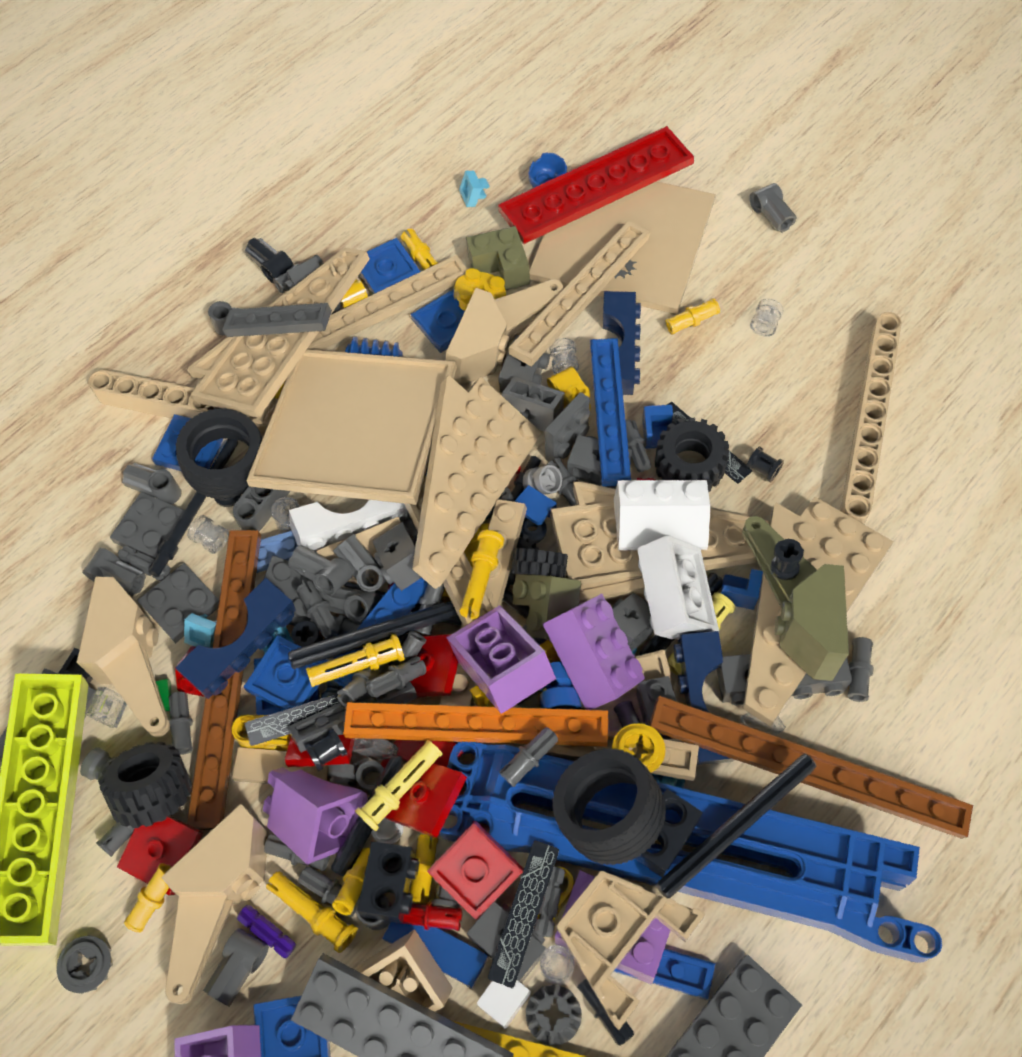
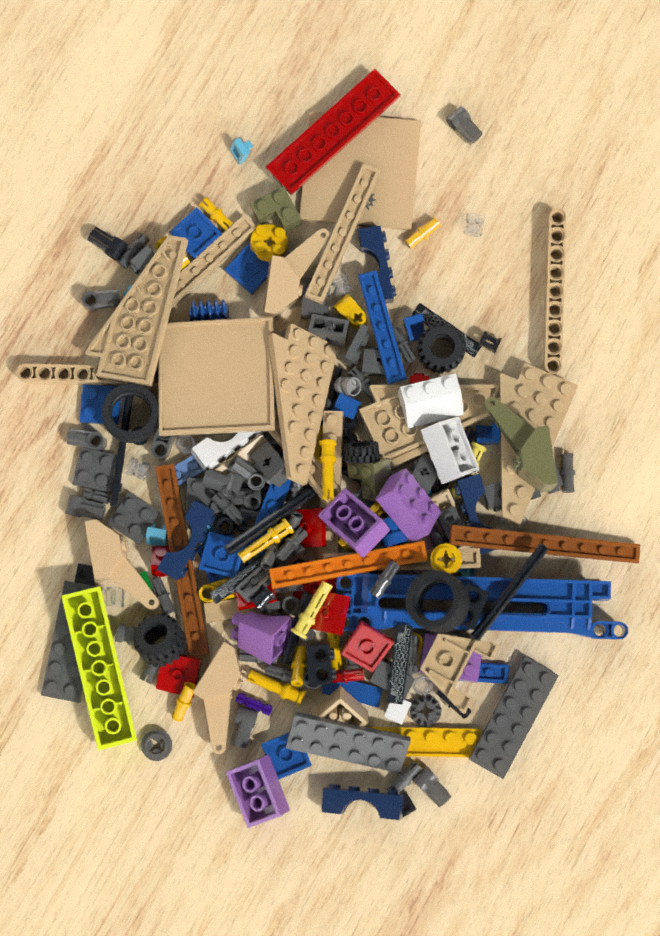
camera: 15 degrees left, 20 degrees up
(277, 320) = (141, 309): dark grey plate -> none
(546, 168) = (293, 126): blue hair -> none
(786, 563) = (508, 430): black bush -> none

